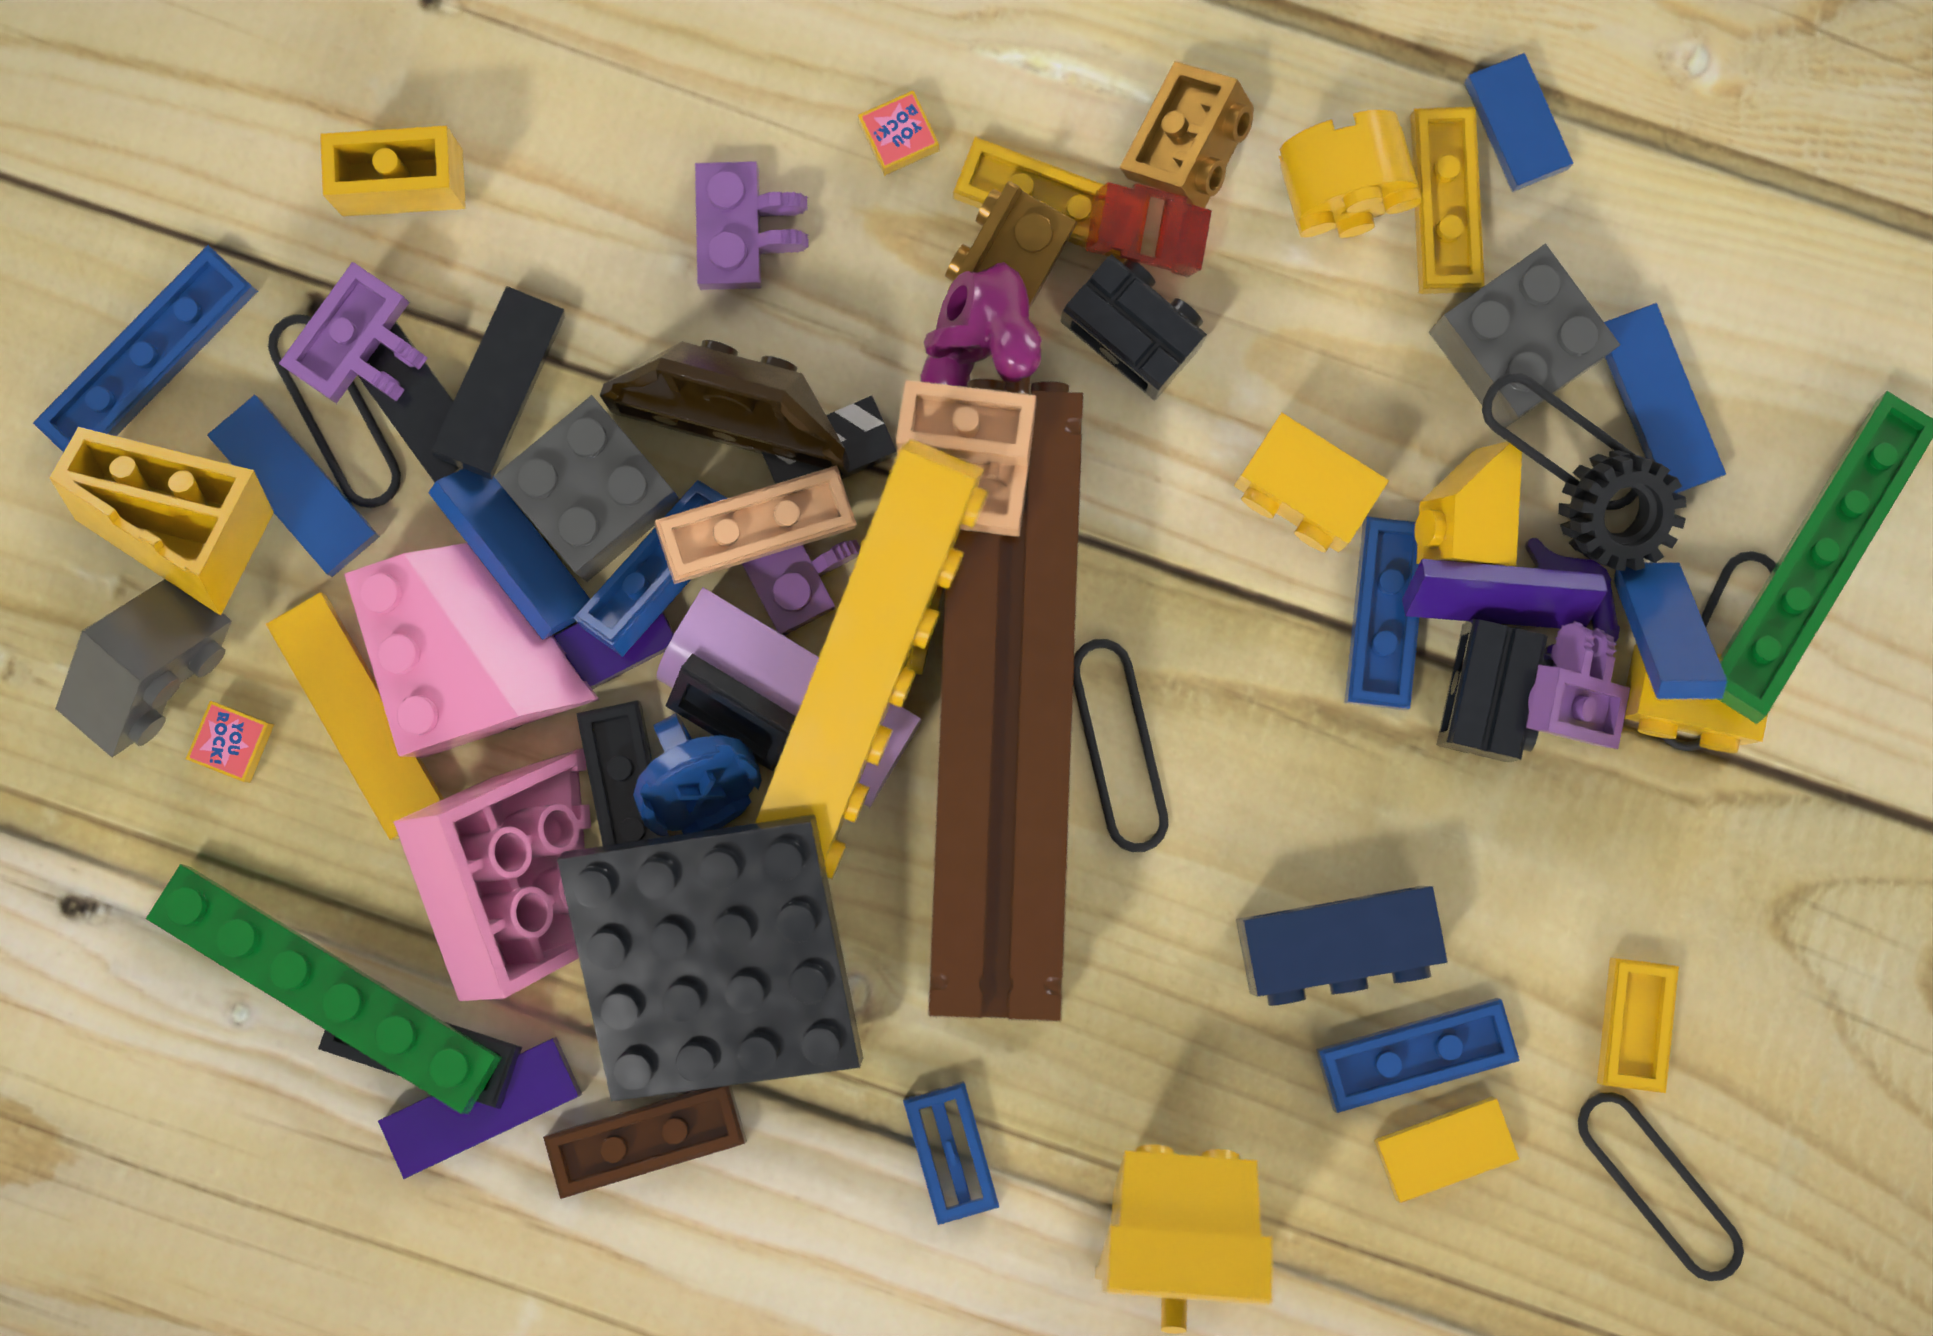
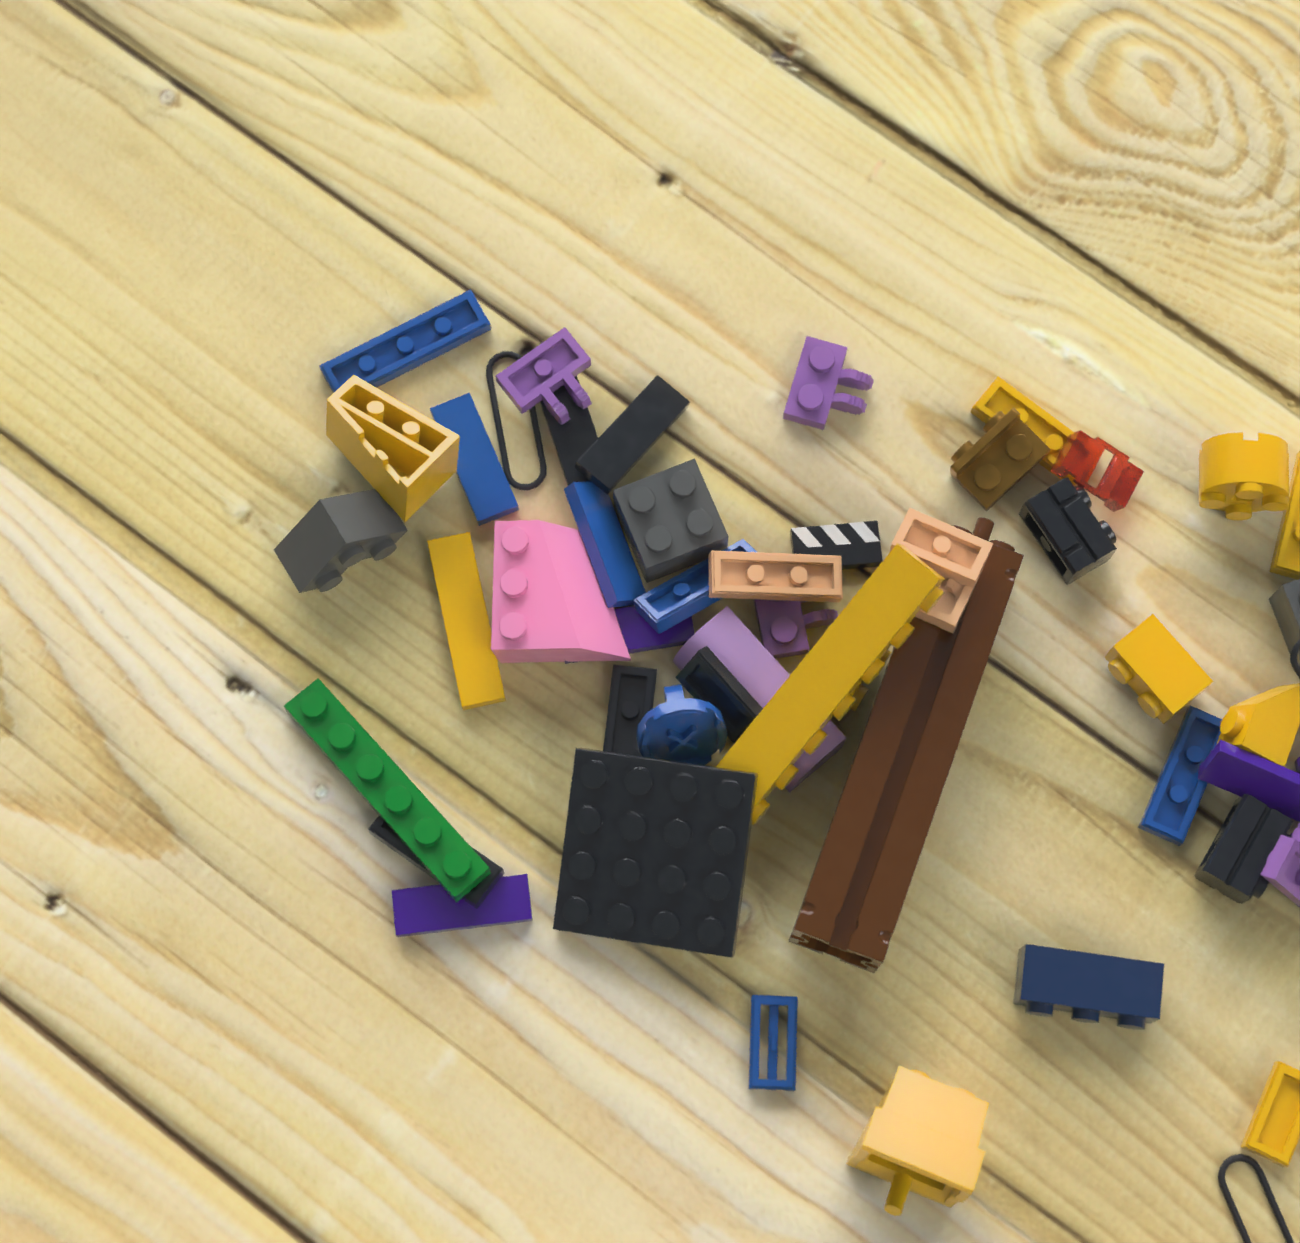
camera: 20 degrees right, 10 degrees down
(229, 741) = (376, 610): tile -> none
(392, 171) = (609, 279): yellow brick -> none
(495, 876) = (529, 753): bright pink wedge -> none
(644, 1139) = (566, 964): reddish brown tile -> none
(729, 401) = (781, 494): dark brown wedge -> none
(898, 132) = (947, 358): tile -> none
(982, 318) = (969, 488): magenta head -> none
(1145, 740) = (992, 808): black piece -> none
(1190, 134) = (1144, 418): pearl gold bracket -> none
(1417, 1055) = (1119, 1083): blue tile -> none
(1446, 1149) = (1120, 1155): yellow tile -> none

